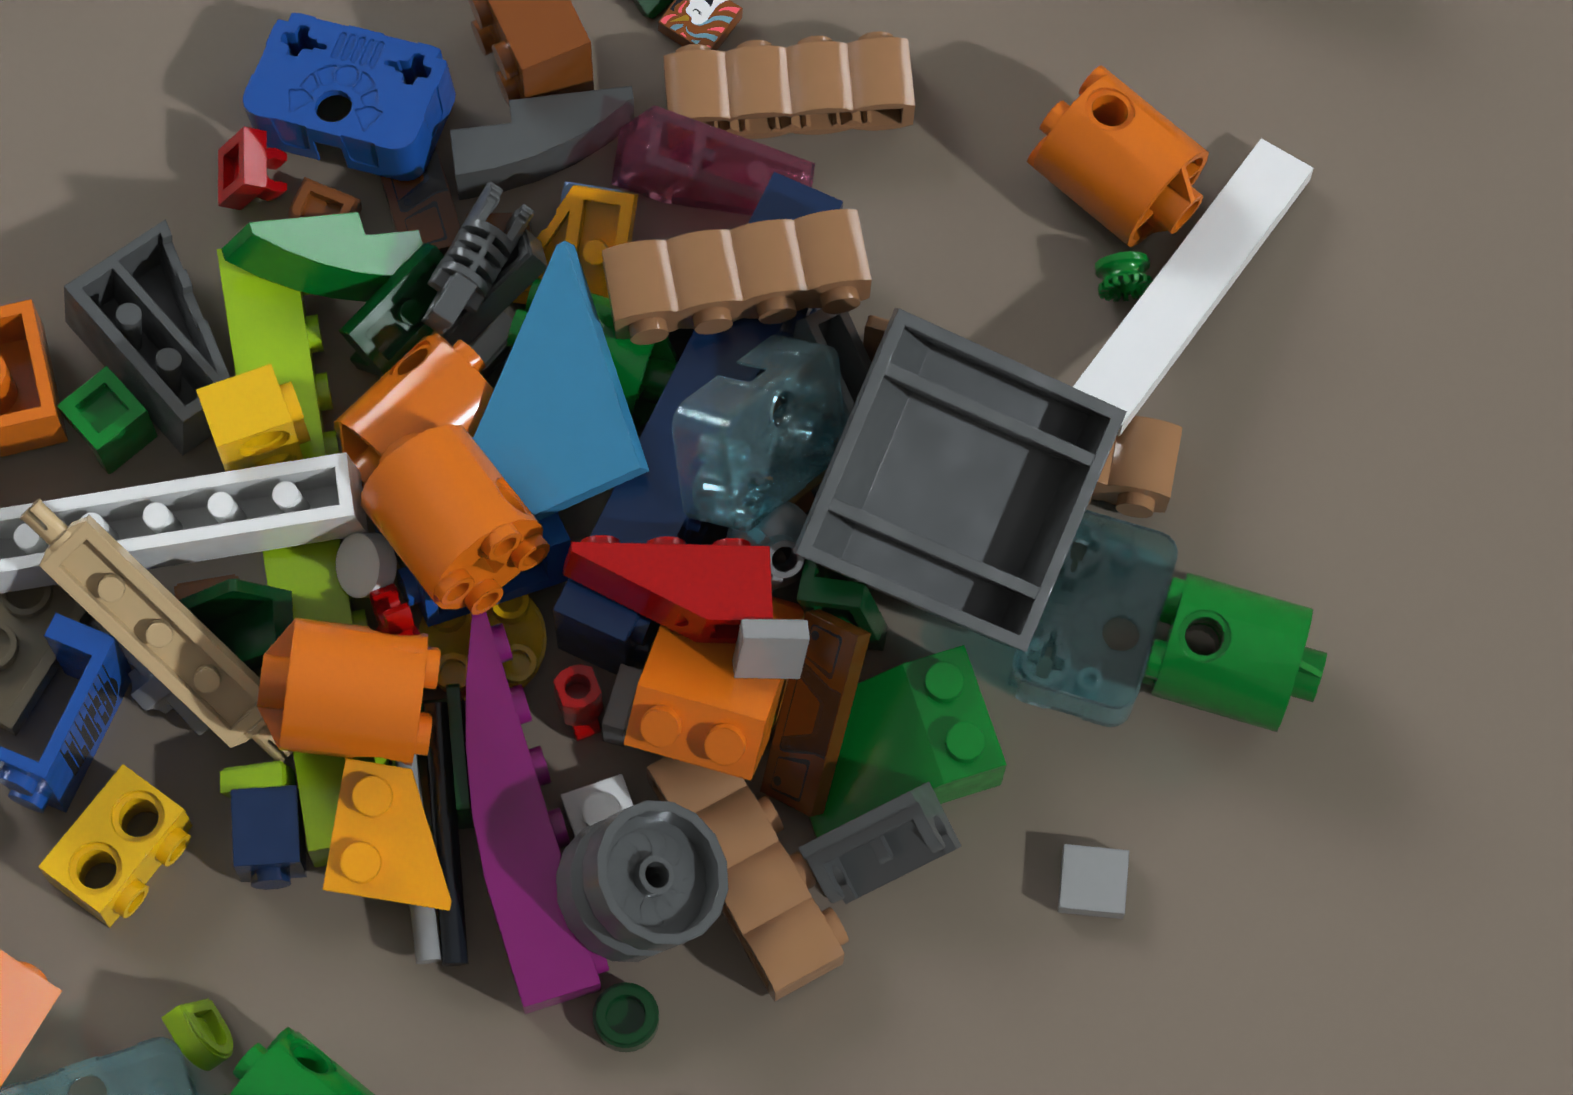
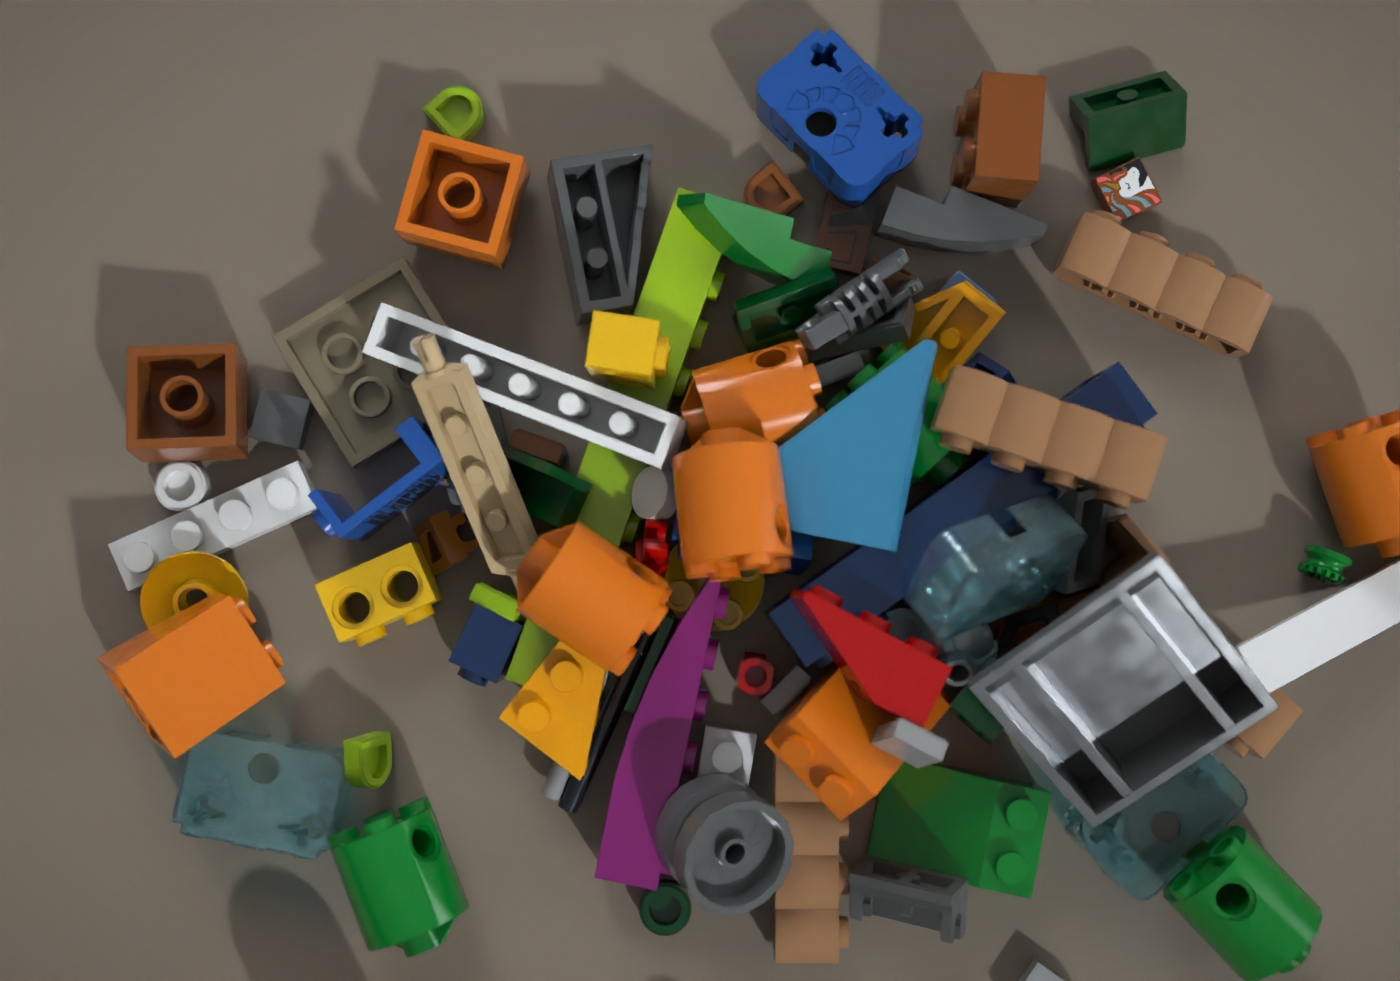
camera: 30 degrees right, 15 degrees up
(108, 419) = (535, 272): green panel -> none
(158, 752) = (441, 541): none -> reddish brown tile
(244, 169) = (733, 131): red tile -> none
(698, 163) = (1066, 312): clear pink slope -> none
(815, 715) = (918, 789): reddish brown tile -> none

